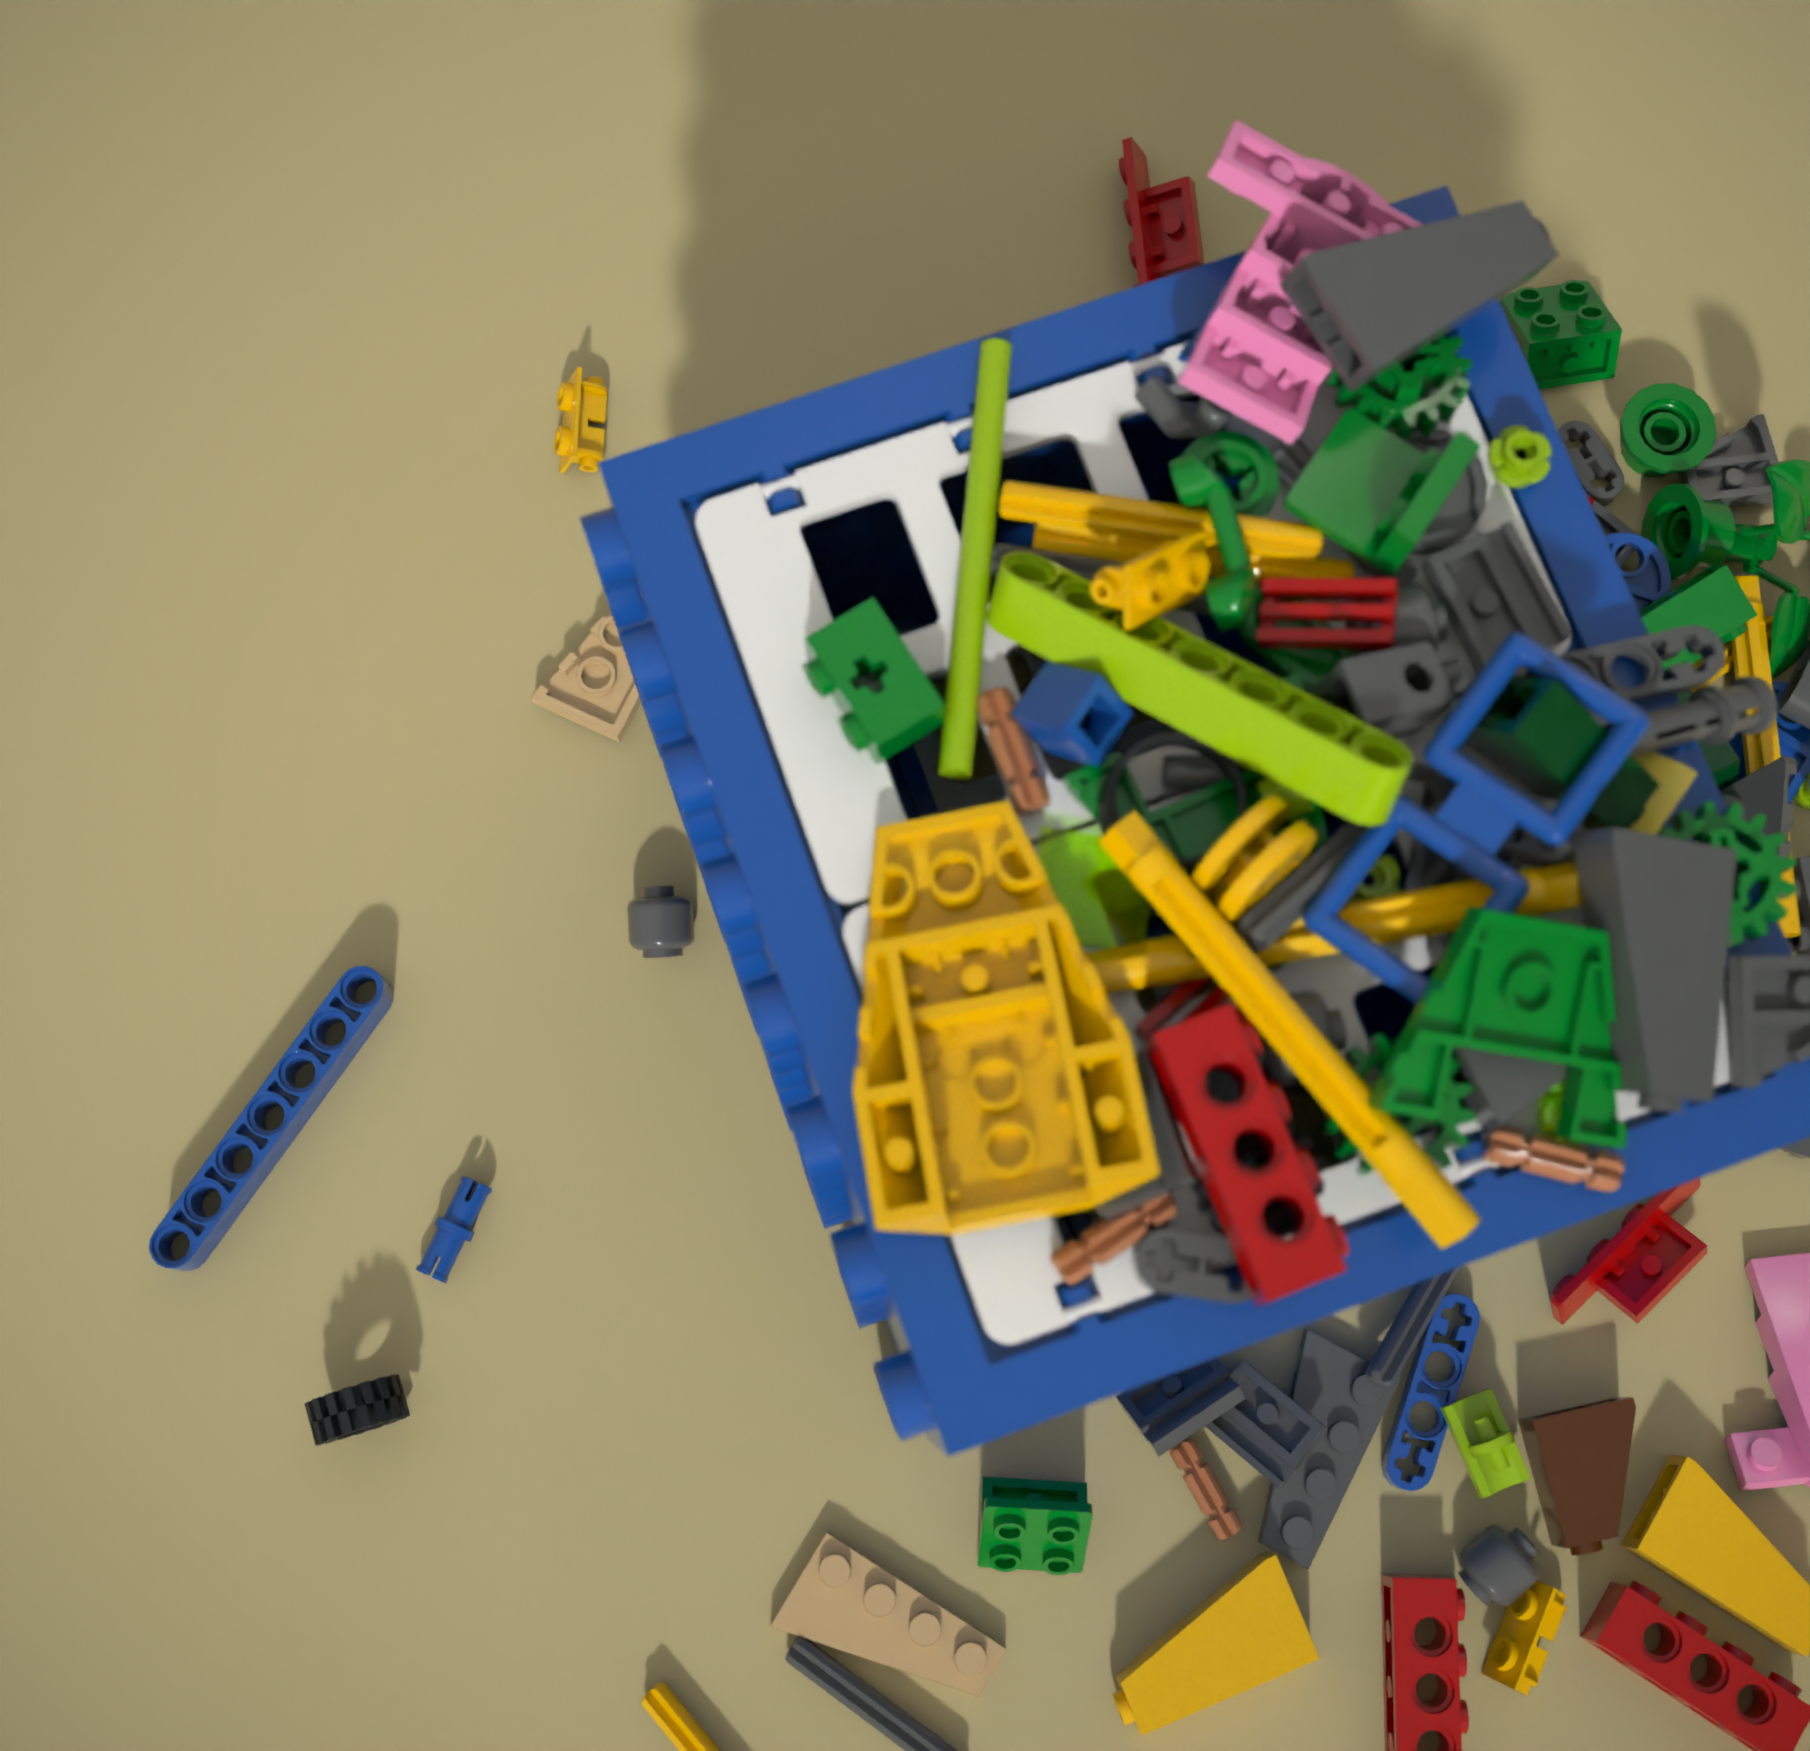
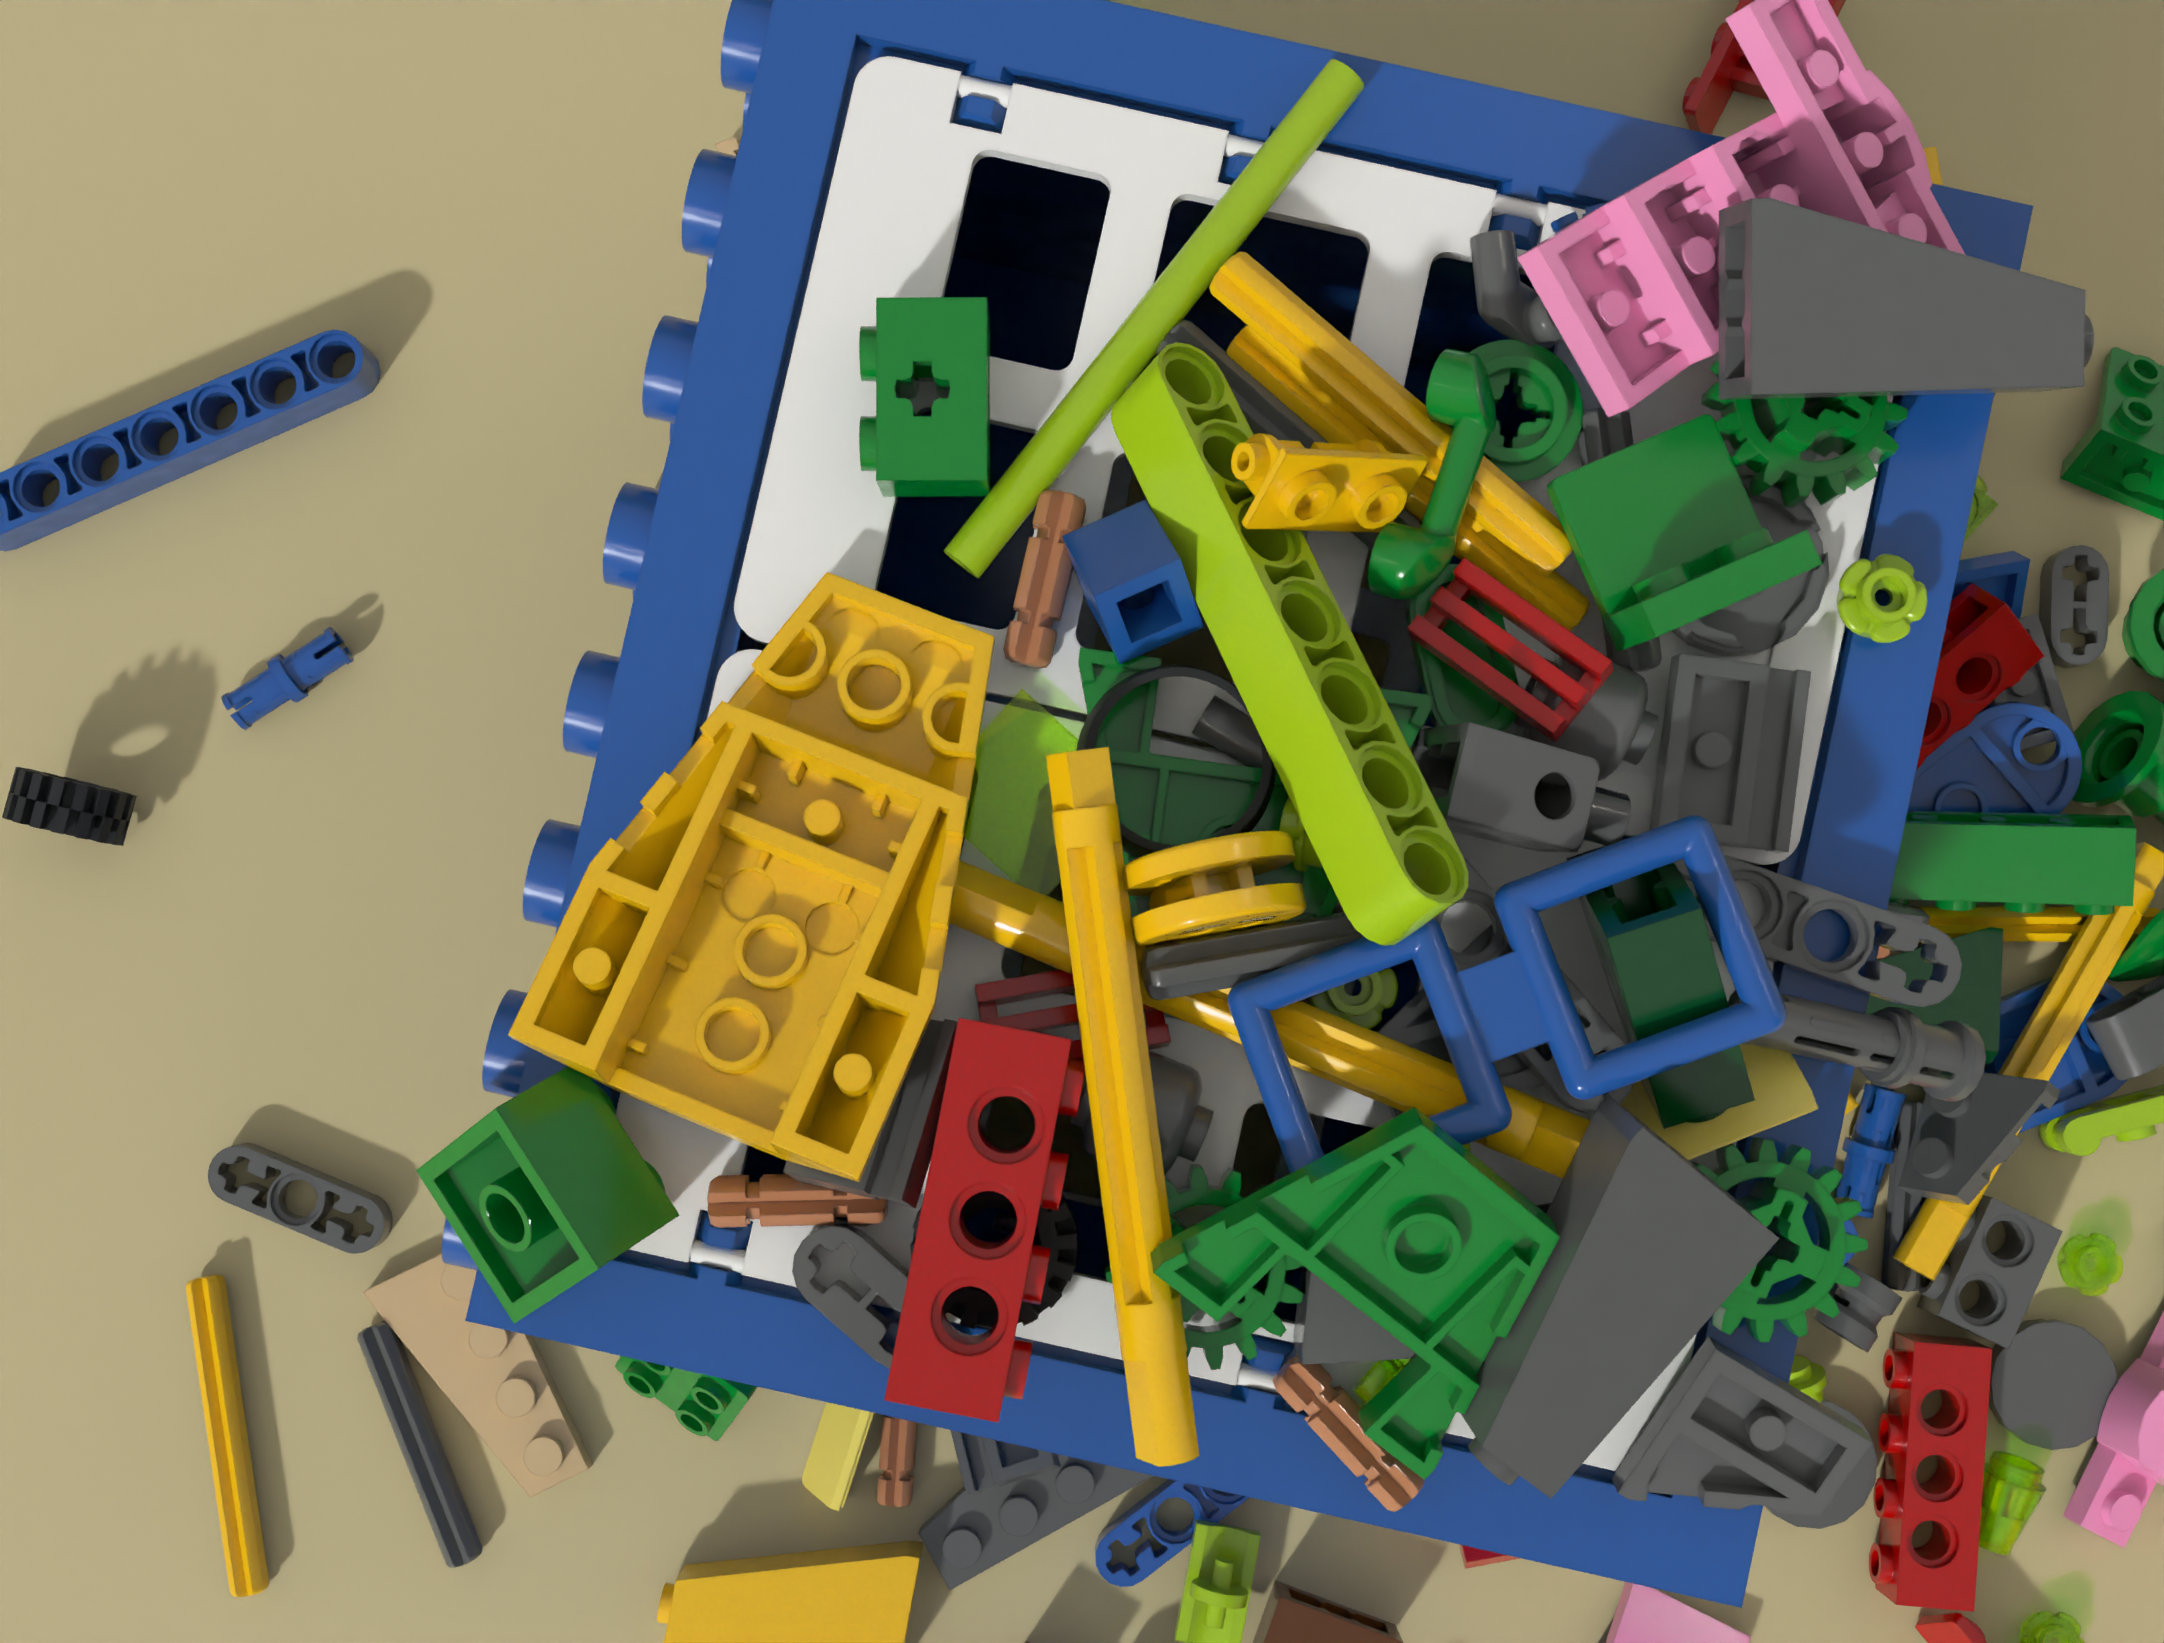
camera: 30 degrees right, 10 degrees up
(643, 1582) = (264, 1165): none -> dark grey beam
(952, 1331) = (547, 1190): none -> green slope
(1165, 1508) = (836, 1453): none -> light yellow slope

